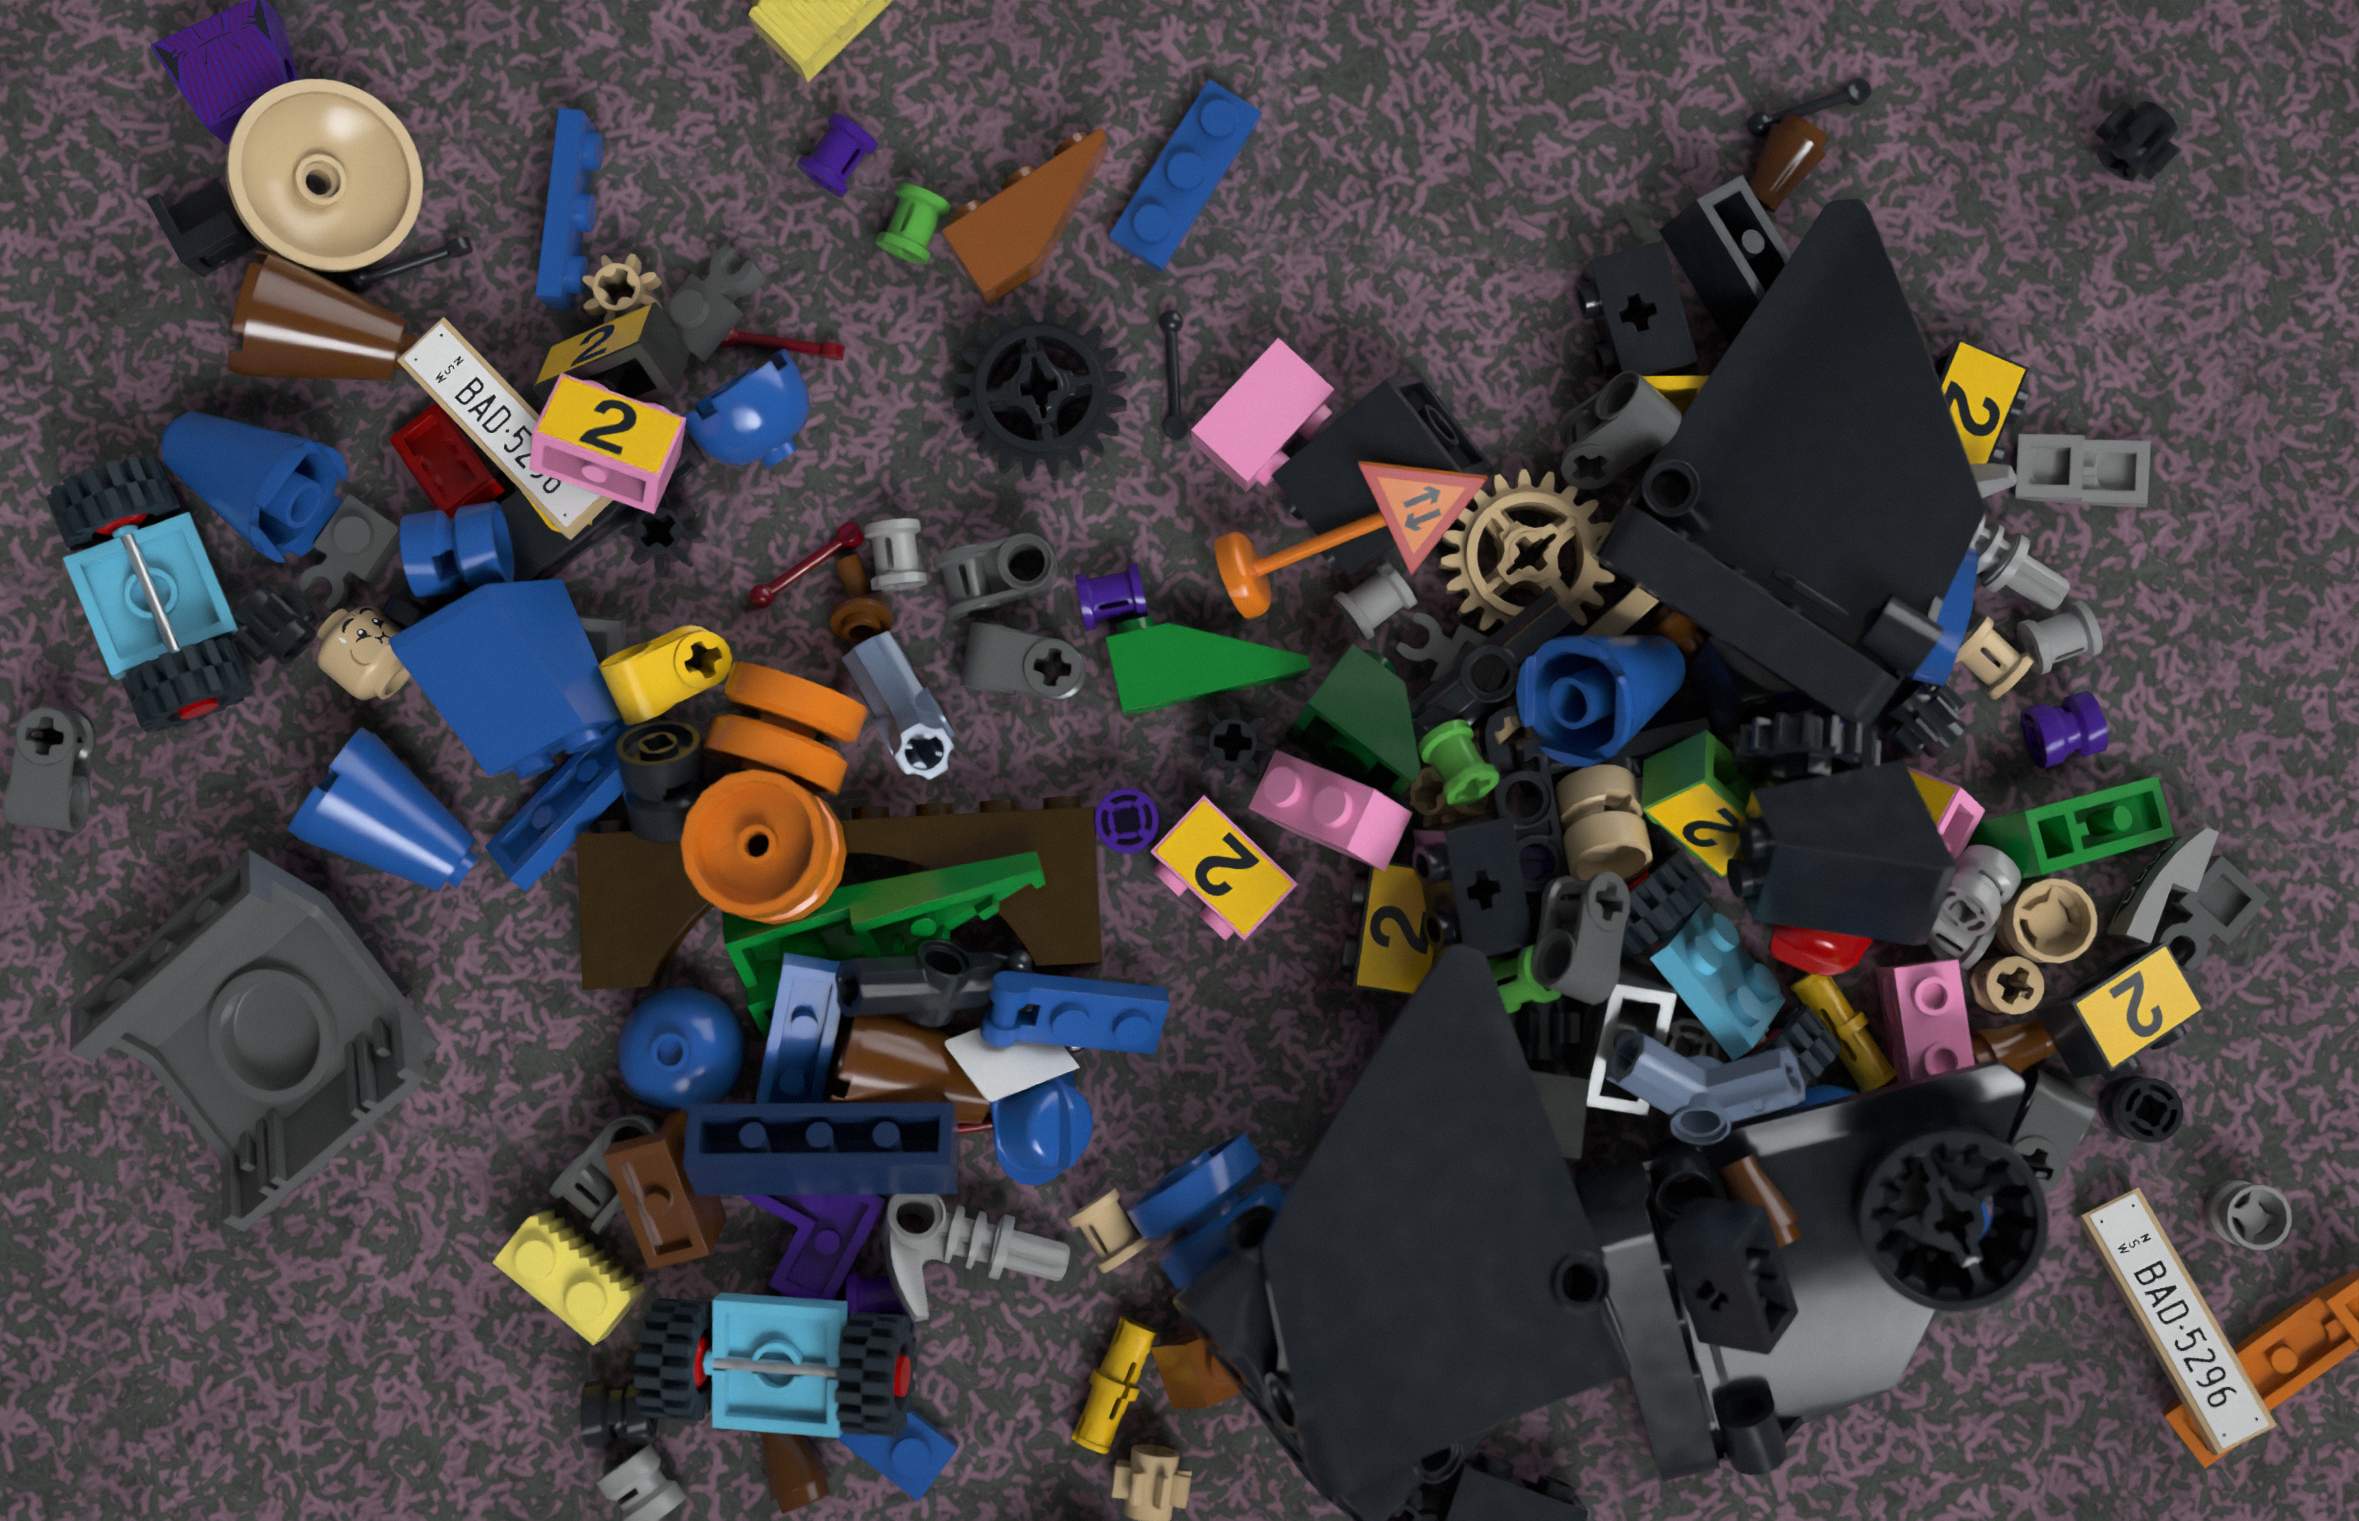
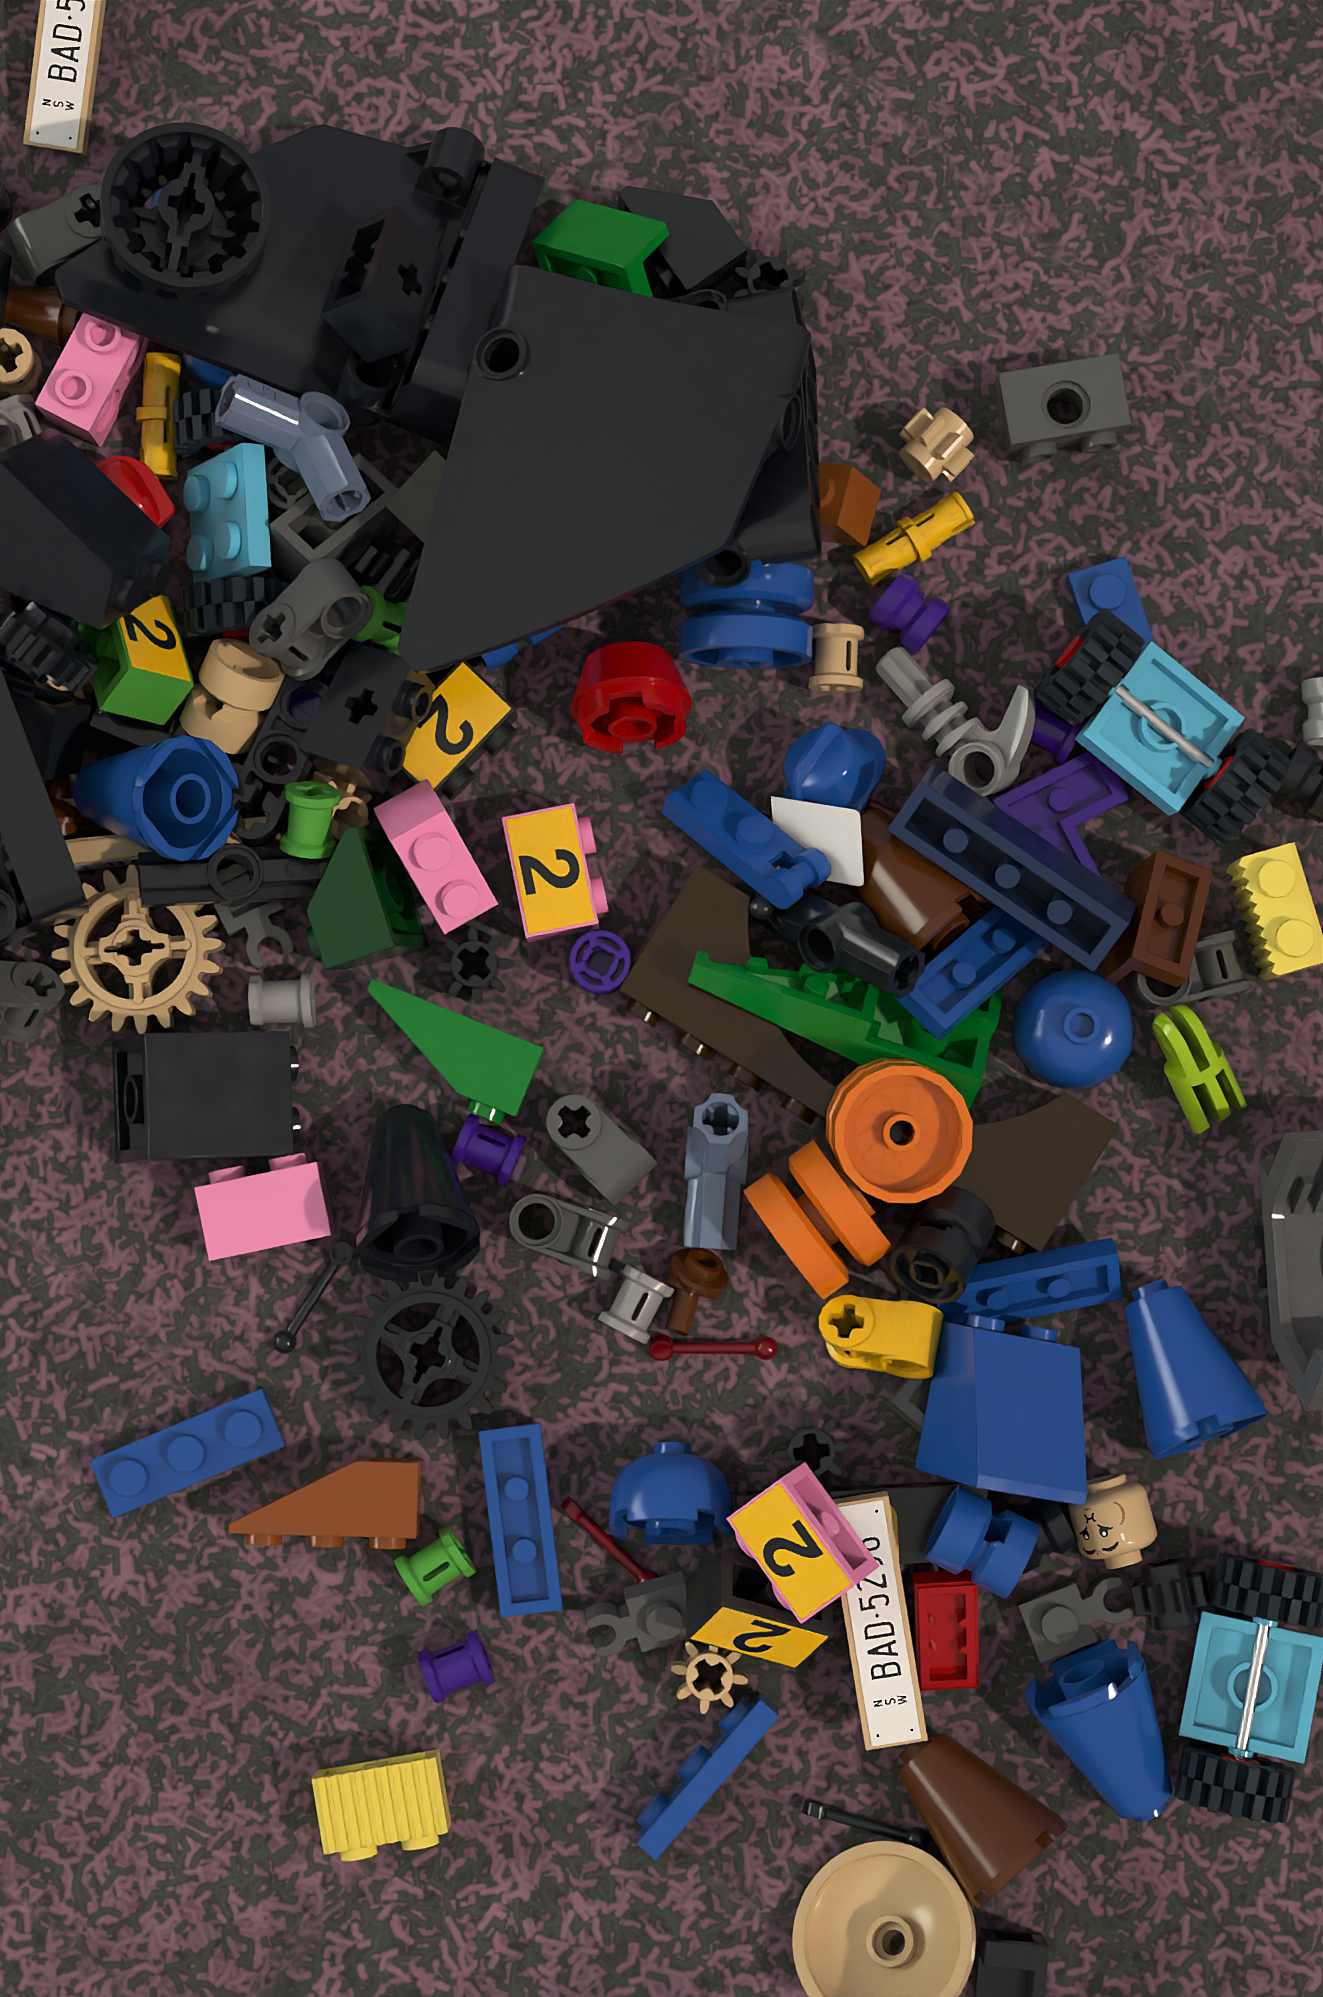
camera: 145 degrees left, 0 degrees up
(549, 1091) = (1196, 1069): none -> lime arm
(793, 1470) = (1205, 643): reddish brown cone -> none
(868, 311) = (520, 1519): none -> blue plate
(1075, 1315) = (904, 609): none -> dark purple wheel
(1142, 506) = (413, 1202): none -> black cone
(1262, 1068) = (630, 697): none -> red cone
(1411, 501) = (199, 1046): orange piece -> none
(1567, 1448) = (600, 246): none -> green panel
(1749, 1184) = (320, 341): reddish brown cone -> none

